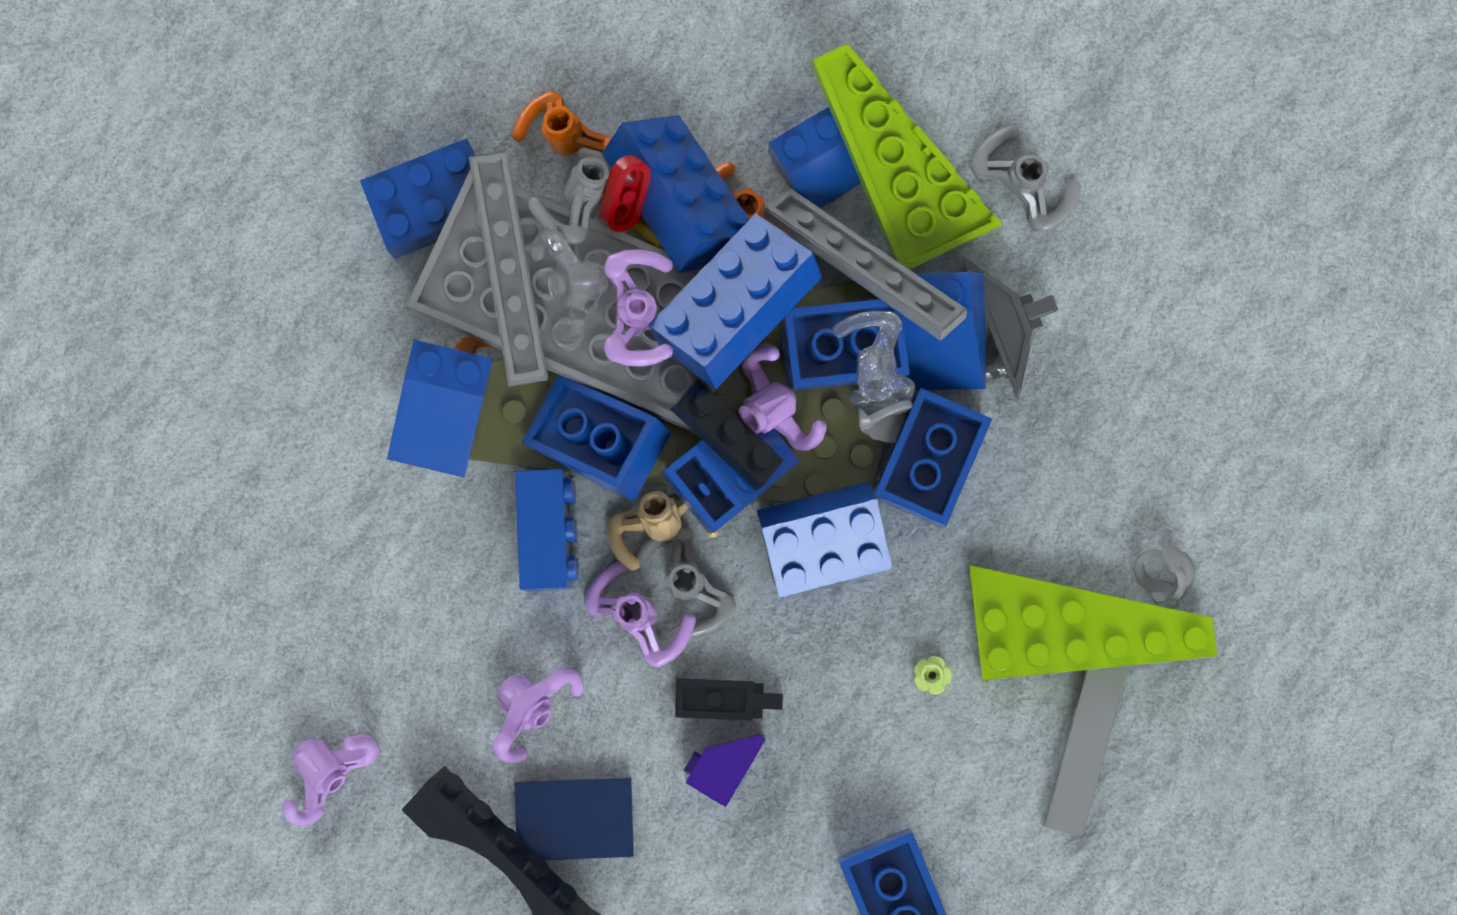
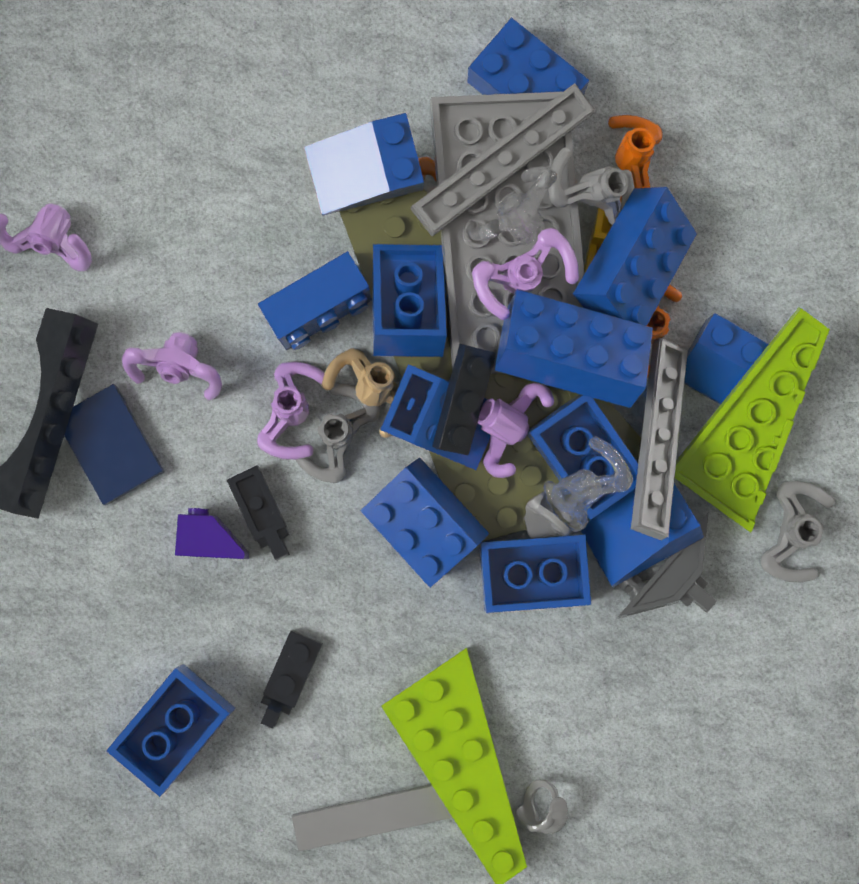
camera: 60 degrees right, 0 degrees up
(627, 190) = (614, 218): red plate -> none
(905, 757) = (289, 676): none -> black hinge
(922, 671) = (356, 659): yellowish green plate -> none

